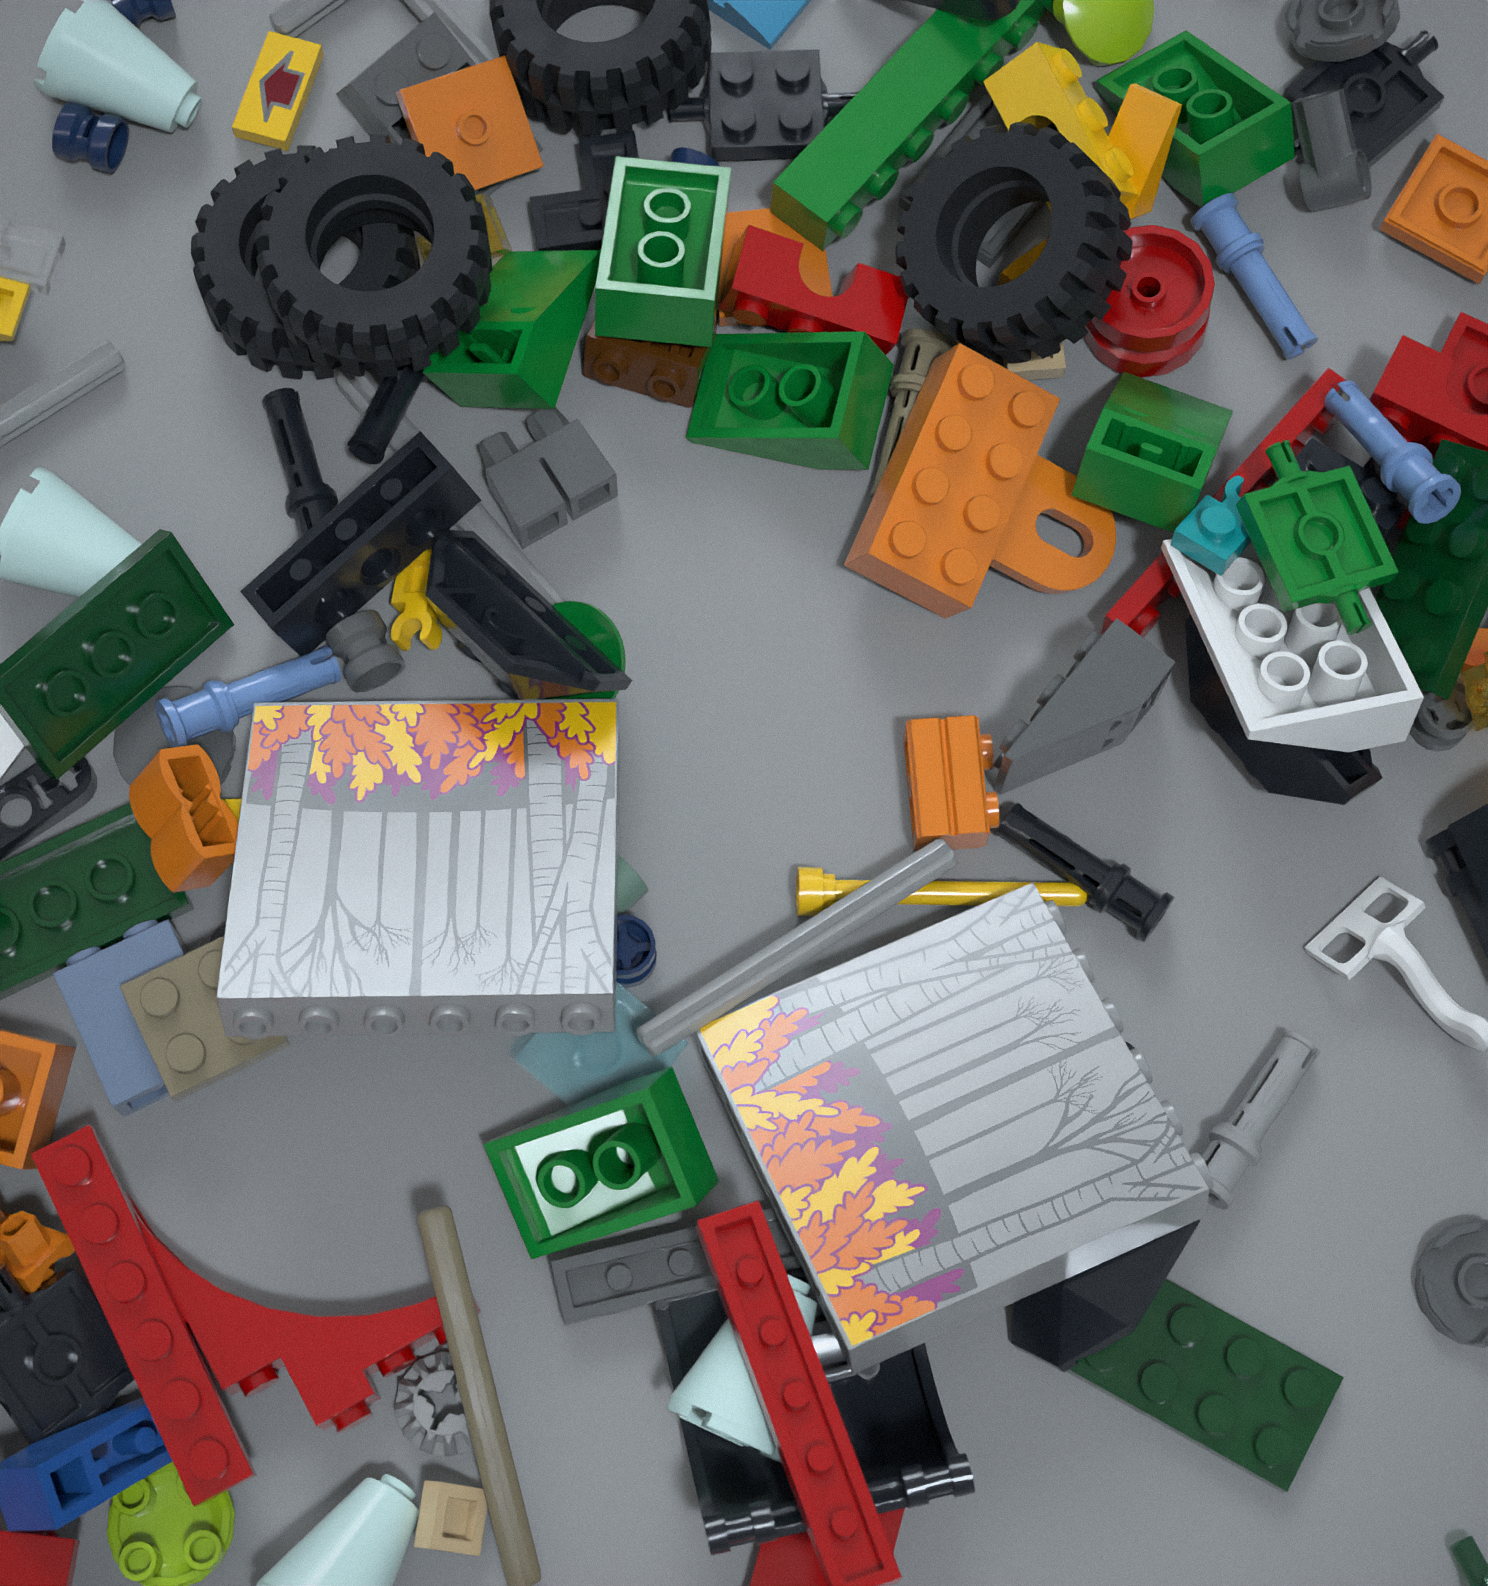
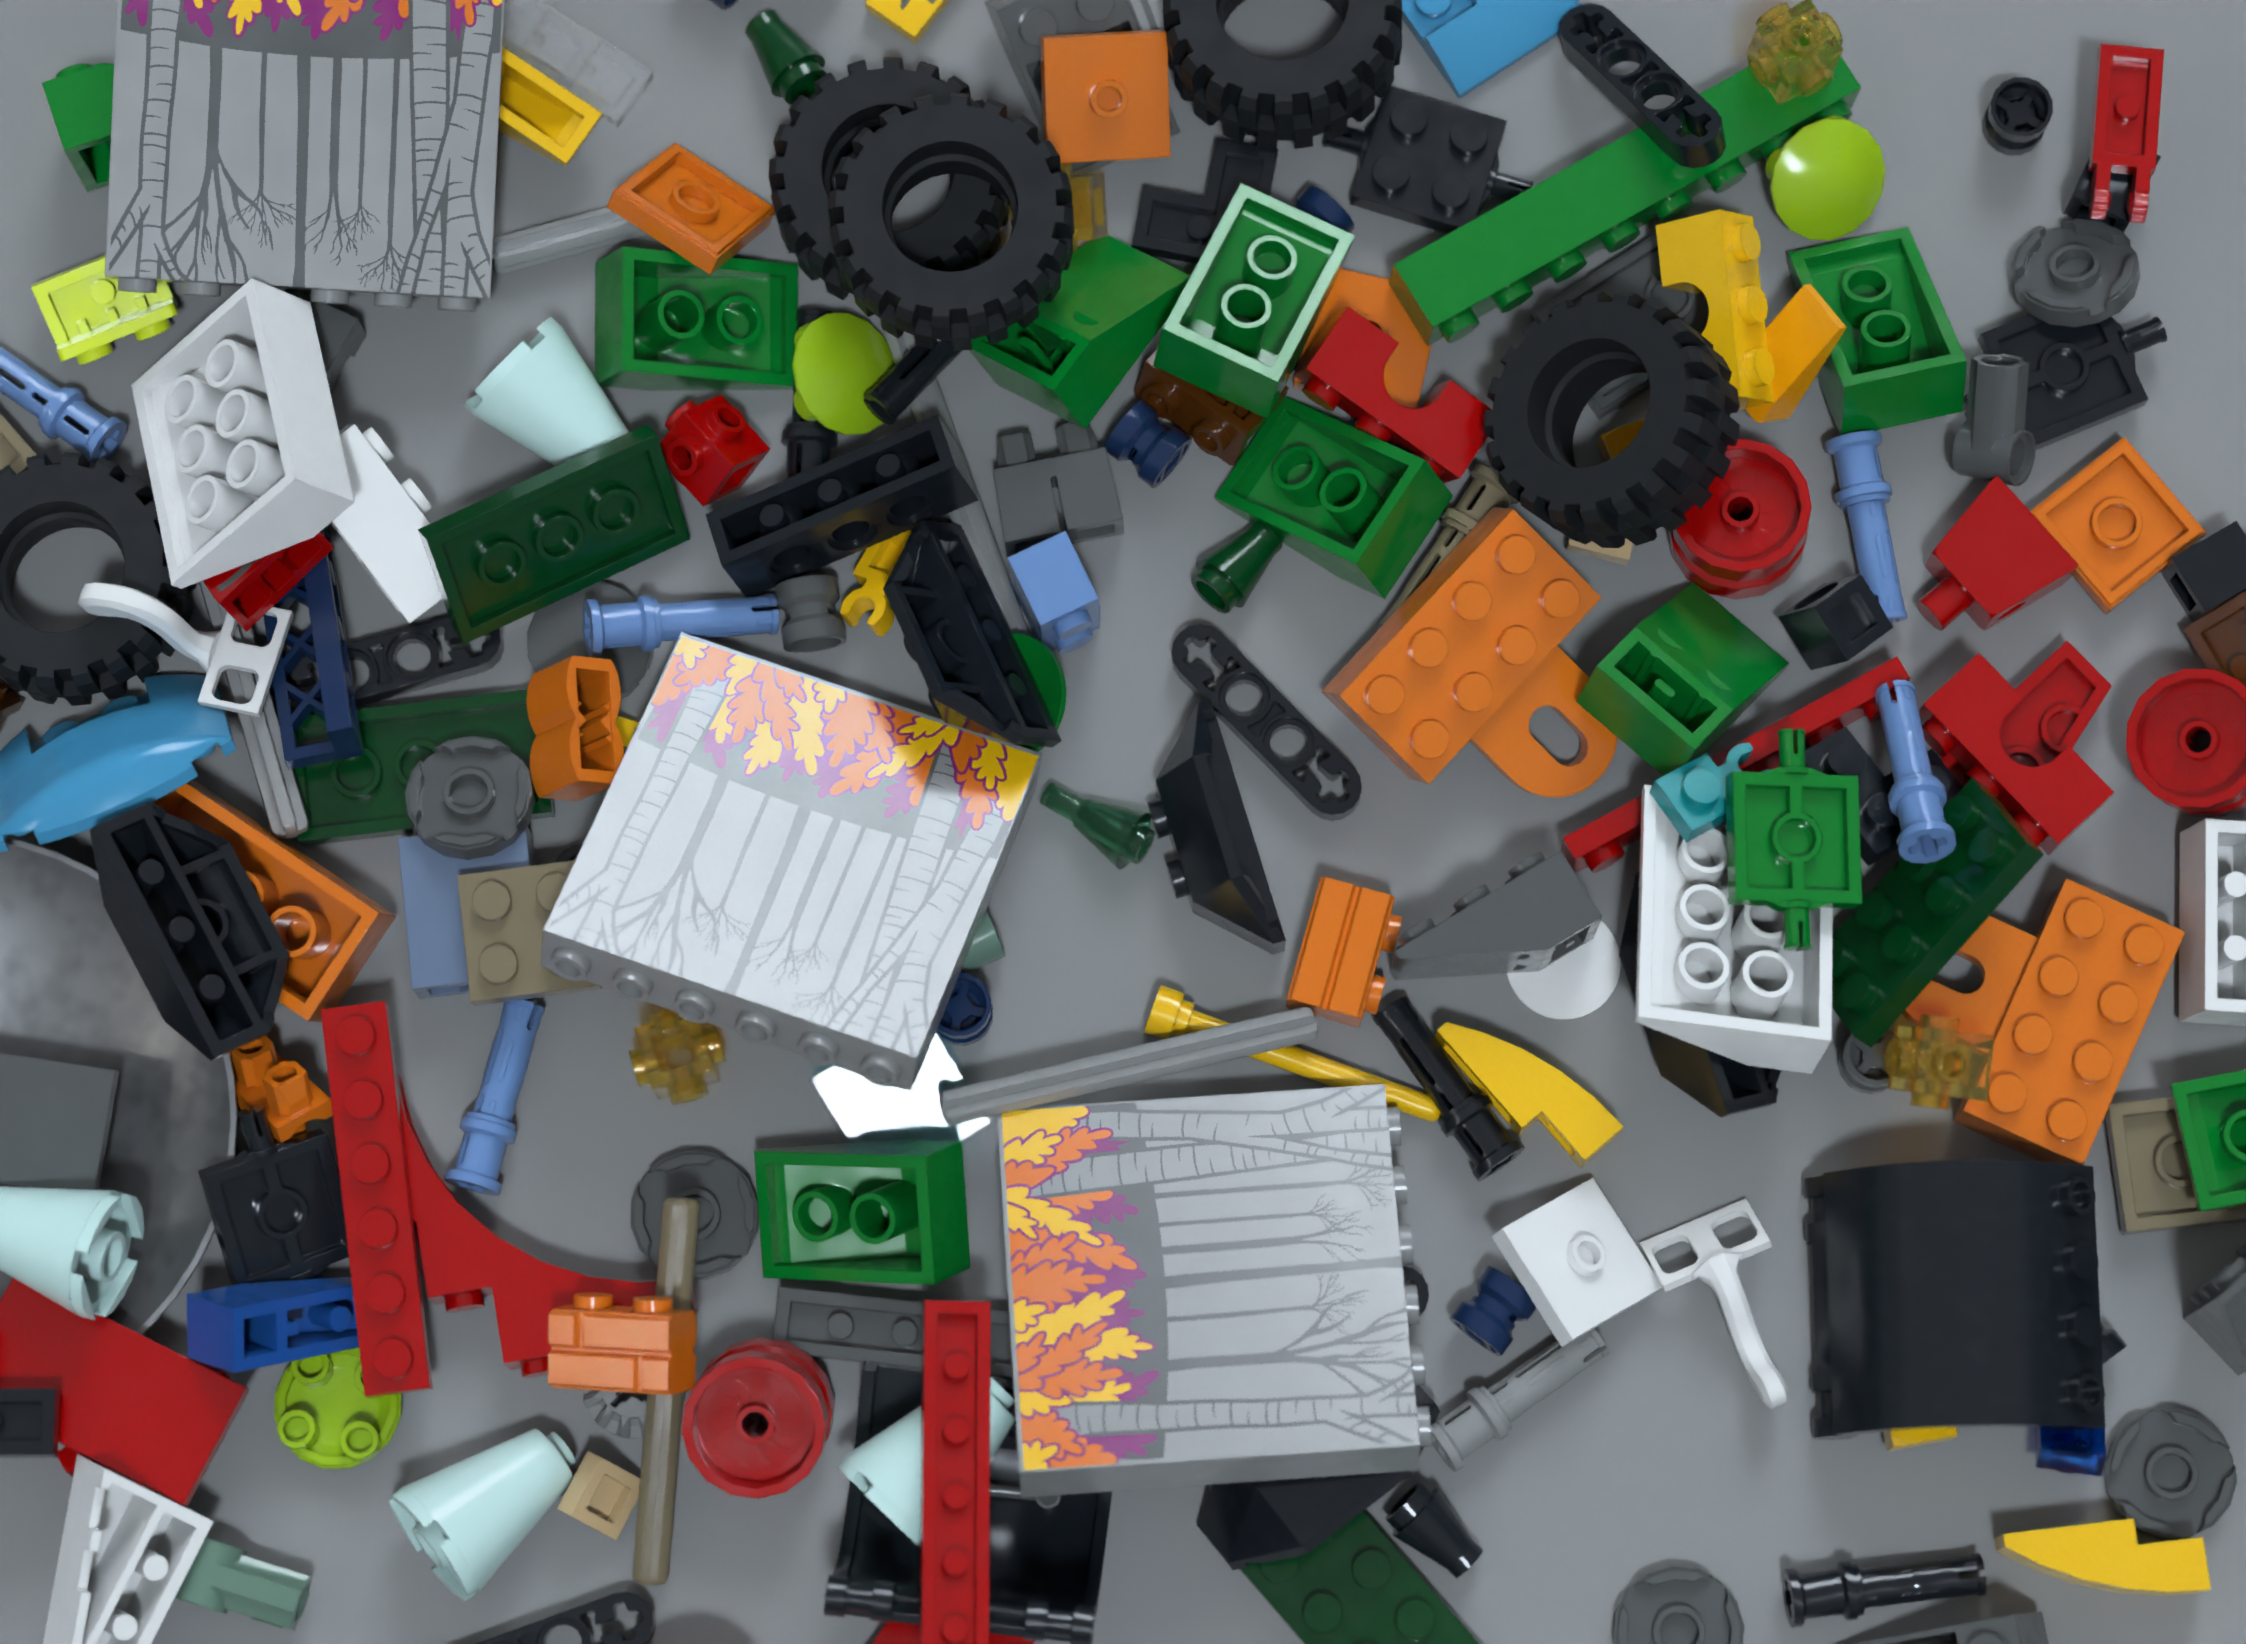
camera: 25 degrees right, 5 degrees up
(108, 914) = (470, 798): none -> dark grey tile
(137, 339) = (691, 208): none -> orange plate
(171, 436) = (686, 330): none -> green slope
(174, 191) = (785, 58): none -> dark green cone
(226, 537) = (711, 448): none -> red brick
(227, 1208) = (489, 1125): none -> medium blue pin
(313, 434) = (834, 368): none -> lime dish
(366, 1065) = (662, 1037): none -> clear yellow brick
(424, 1369) = (622, 1346): none -> orange brick
(477, 1209) = (726, 1209): none -> dark grey tile
(575, 1430) = (744, 1453): none -> red wheel
(579, 554) = (1055, 593): none -> medium blue brick
(612, 408) = (1147, 444): none -> dark blue wheel
(705, 747) = (1114, 830): none -> clear green cone
(727, 490) = (1234, 569): none -> dark green cone
(796, 723) = (1212, 836): none -> black wedge
(808, 603) = (1260, 727): none -> black beam
(1155, 744) = (1574, 982): none -> white sticker
(1160, 845) = (1531, 1090): none -> yellow slope
(1204, 1056) = (1493, 1312): none -> dark blue wheel
(1226, 1268) = (1433, 1529): none -> black cone
(1262, 981) = (1577, 1262): none -> white plate
(1263, 358) = (1835, 622): none -> black brick
(1372, 268) = (1993, 562): none -> red torso

